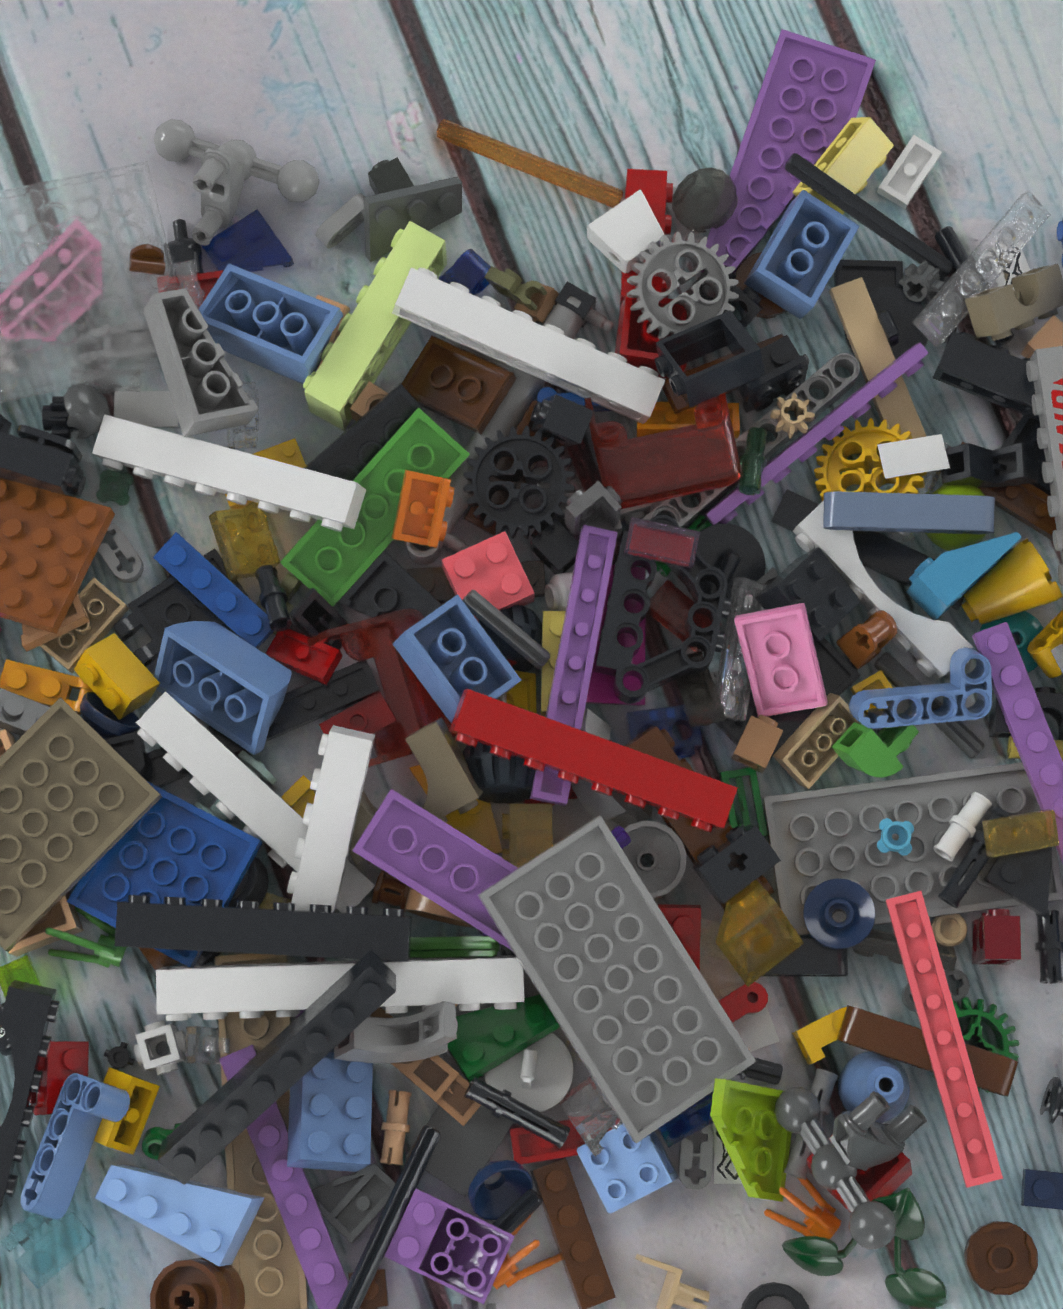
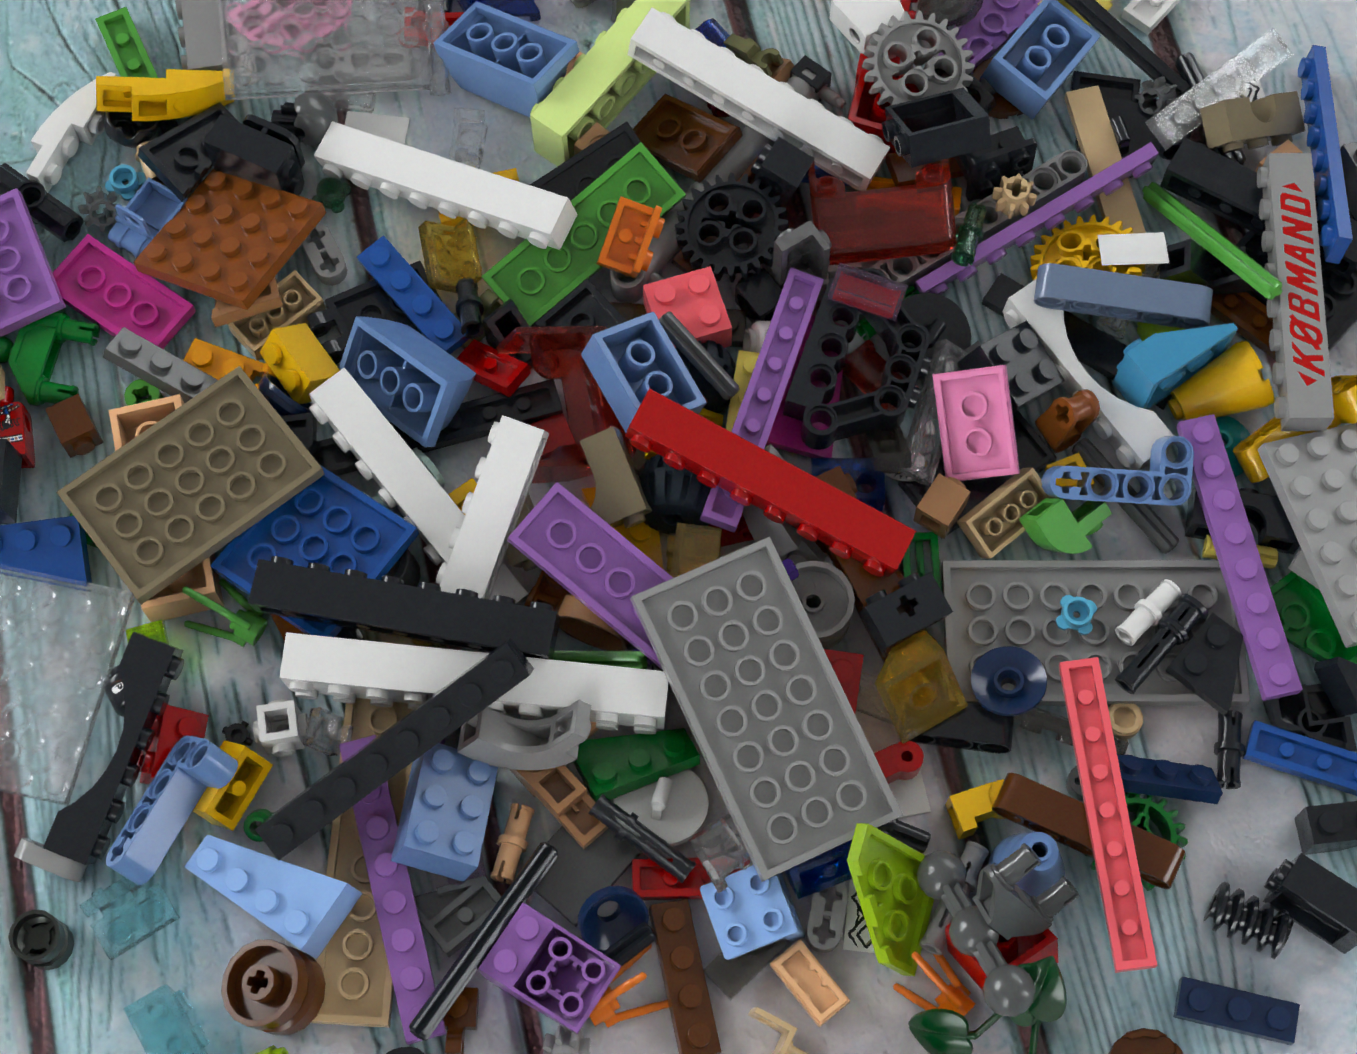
camera: 10 degrees right, 10 degrees down
(194, 367) = (426, 82): light grey wedge -> none
(619, 1224) = (736, 973): none -> clear smoke plate
(688, 1222) = (809, 983): none -> light nougat plate
(989, 439) = (1213, 241): none -> bright green axle
(995, 986) = (1169, 779): none -> dark blue plate
(996, 938) = (1173, 728): dark red brick -> none
(1020, 833) = (1209, 619): clear yellow plate -> none

